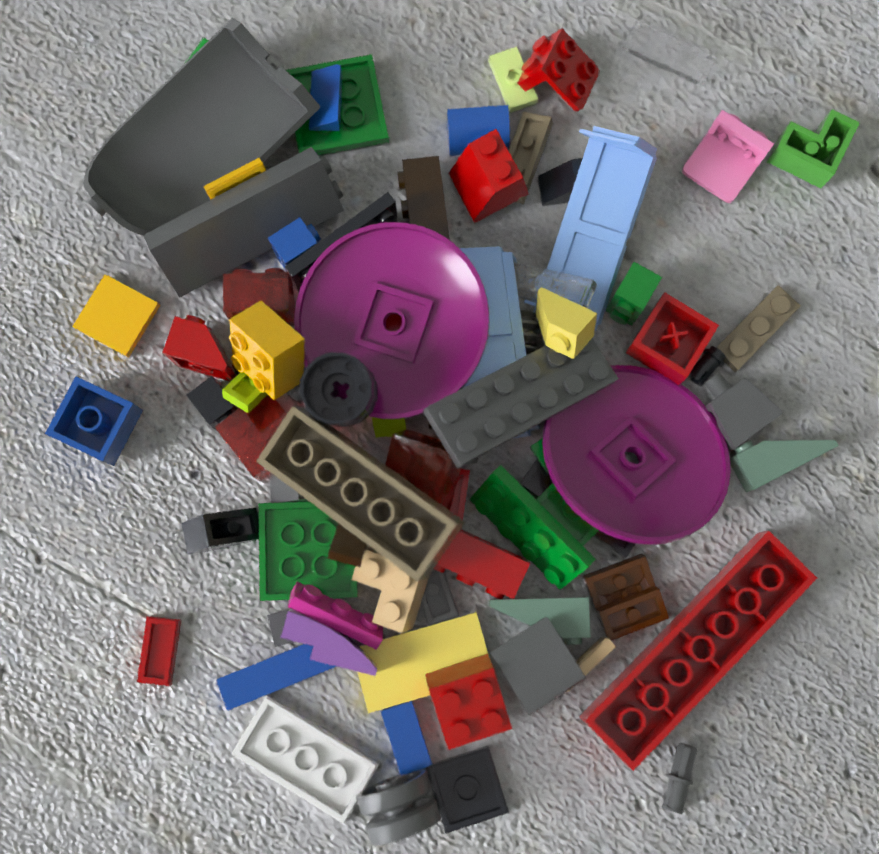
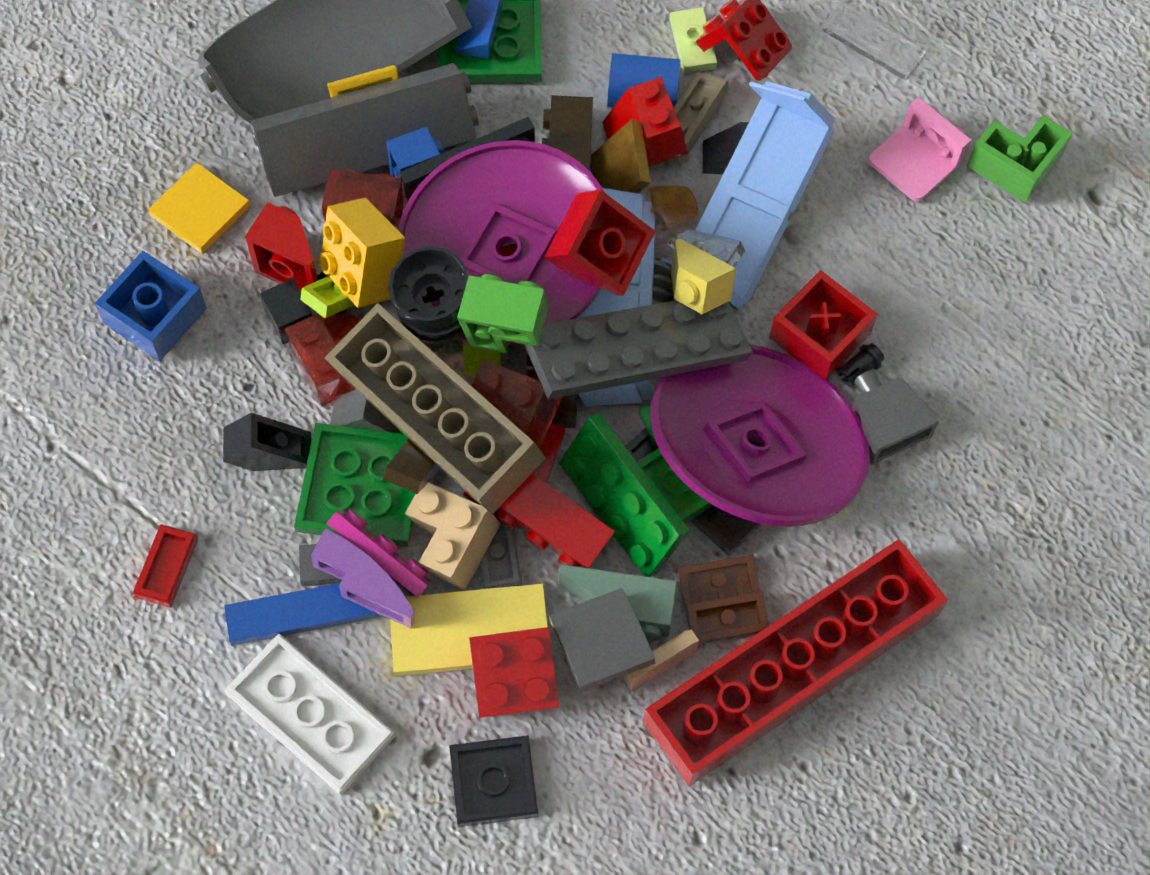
camera: 10 degrees right, 15 degrees down
(398, 807) = (407, 770): dark grey wheel -> none
(406, 401) = (502, 312): none -> bright green brick
(406, 737) = (432, 709): blue tile -> none
(475, 217) = (623, 160): none -> pearl gold tile
(477, 316) = (600, 242): none -> red slope
(525, 249) = (672, 205): none -> clear orange piece
(633, 294) = (785, 269): green brick -> none
(680, 778) = (751, 811): dark grey axle -> none
(757, 327) = (928, 336): dark tan plate -> none
(771, 459) = (924, 474): sand green slope -> none

